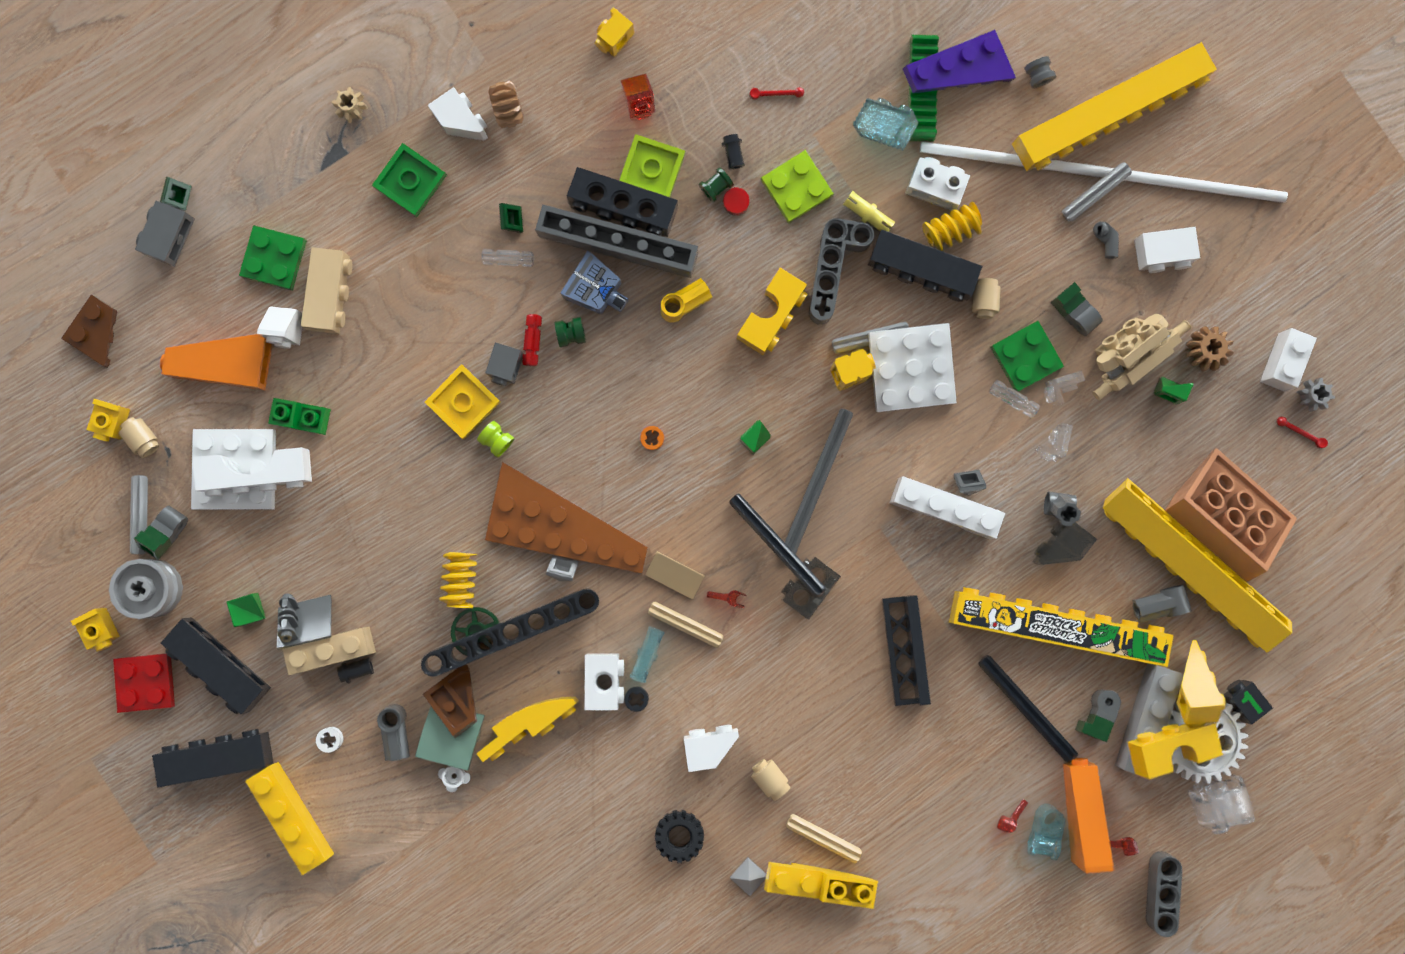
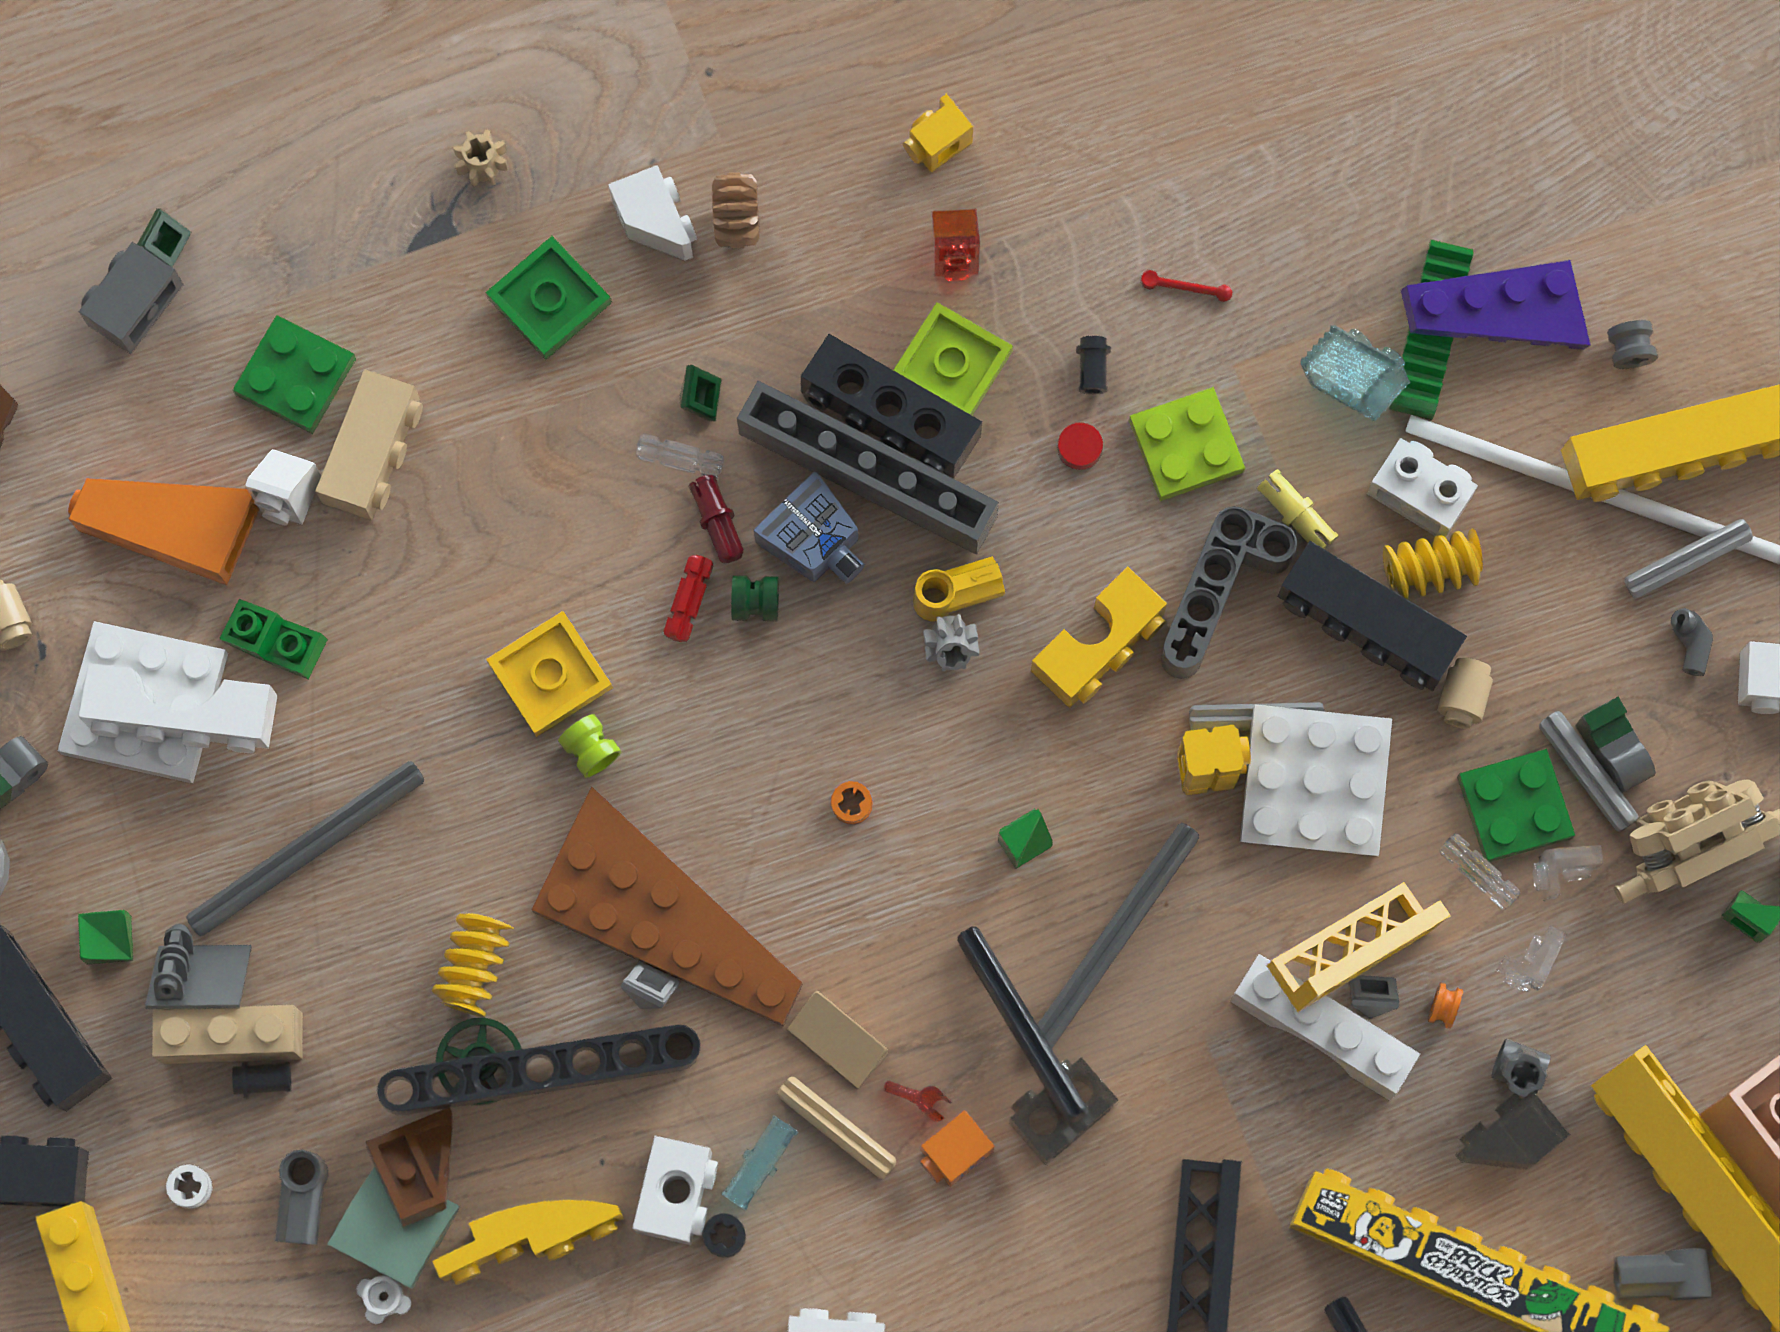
camera: 15 degrees right, 10 degrees down
(347, 533) = (305, 848): none -> dark grey axle
(504, 364) = (633, 627): dark grey brick -> none
(537, 290) = (717, 518): none -> dark red axle
(688, 333) = (951, 642): none -> light grey gear
(716, 184) = (1052, 411): dark green bush -> none
(755, 623) = (955, 1150): none -> orange brick
(965, 462) = (1365, 955): none -> yellow fence
(1011, 480) = (1445, 1005): none -> orange bush
(1063, 327) = (1588, 771): none -> light grey axle

